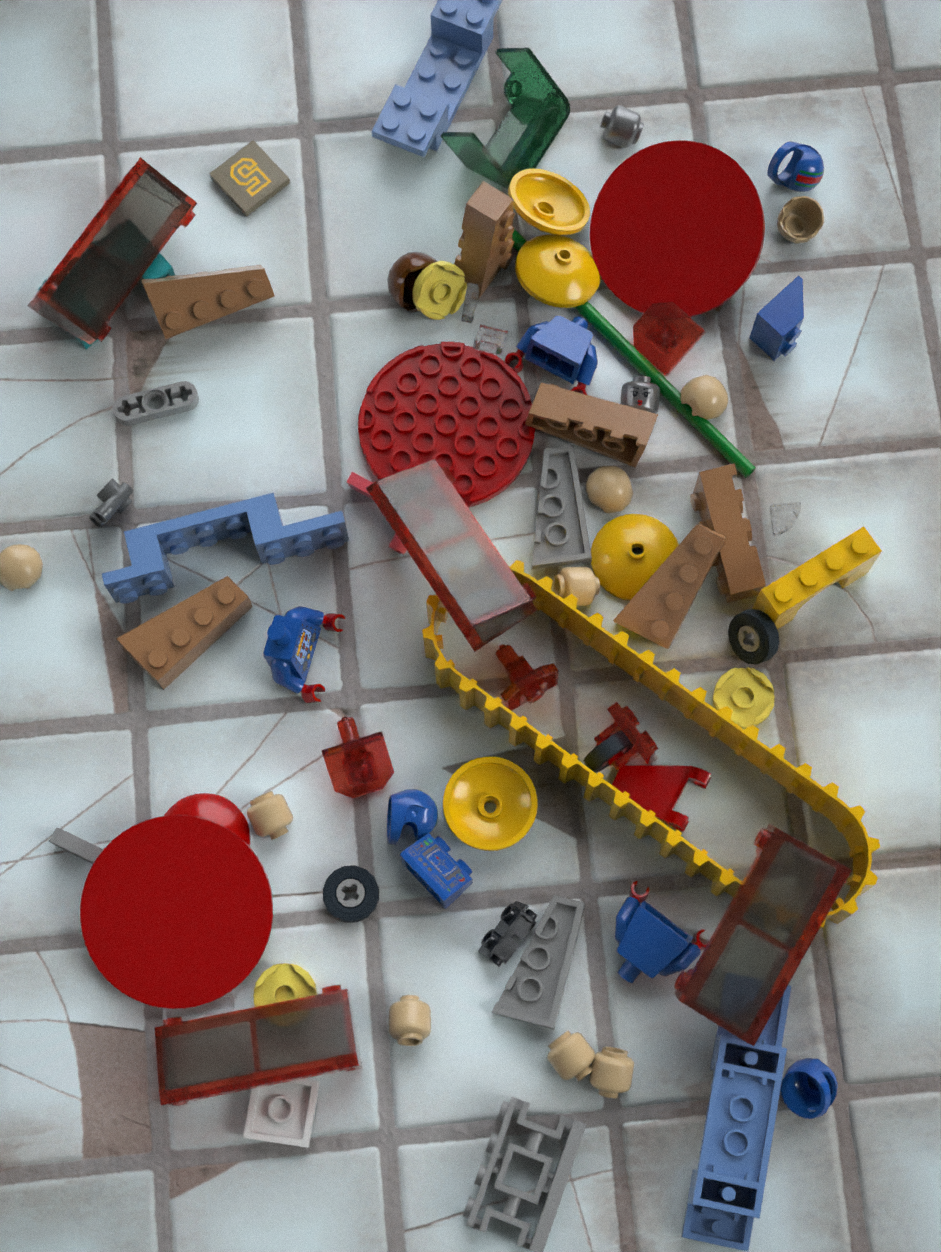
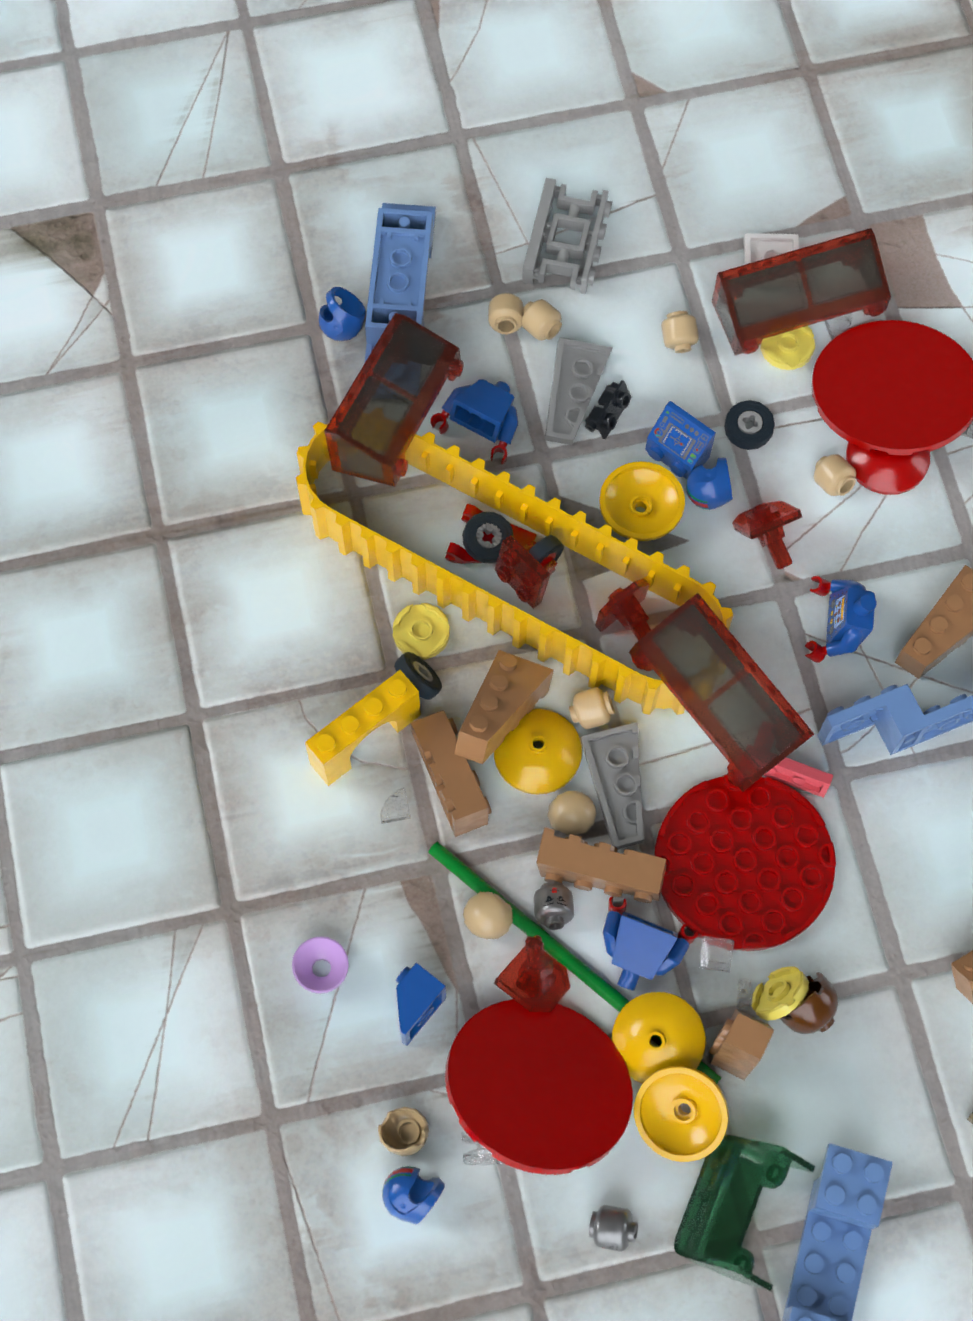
camera: 170 degrees right, 5 degrees down
(666, 769) = (473, 532): none -> black bush
(870, 357) = (315, 950): none -> lavender piece

